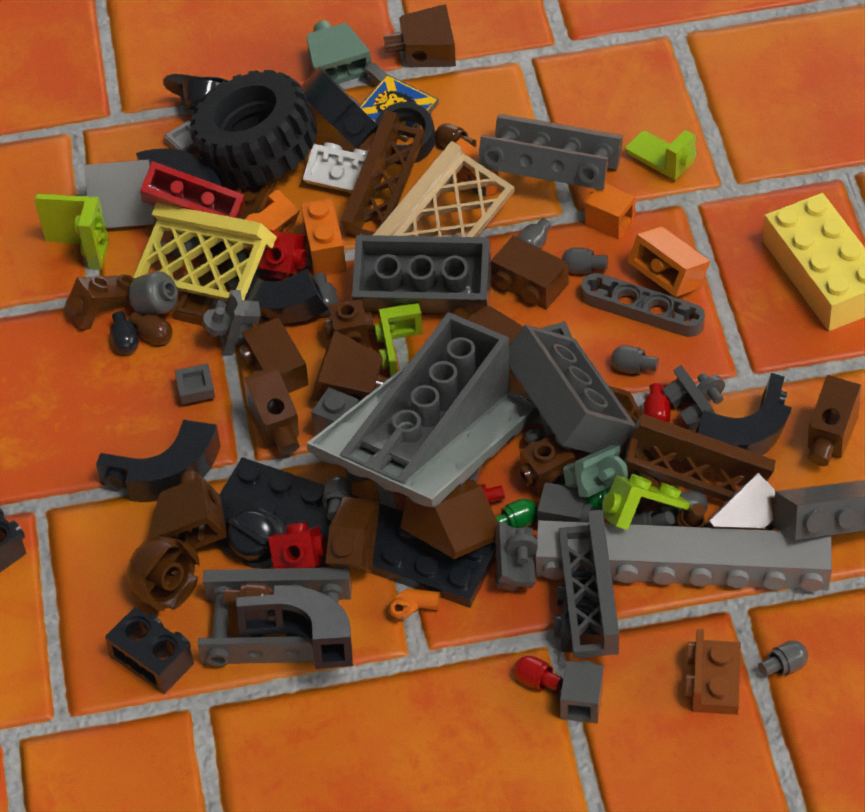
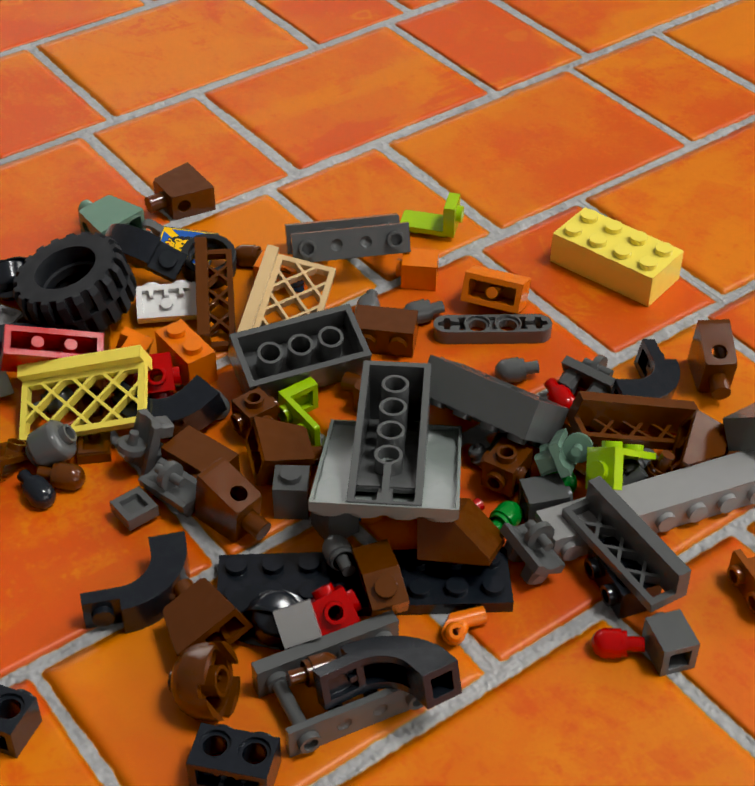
camera: 30 degrees left, 10 degrees down
(231, 368) = (172, 485): none -> dark grey hips
(257, 550) = (297, 623): none -> light grey tile

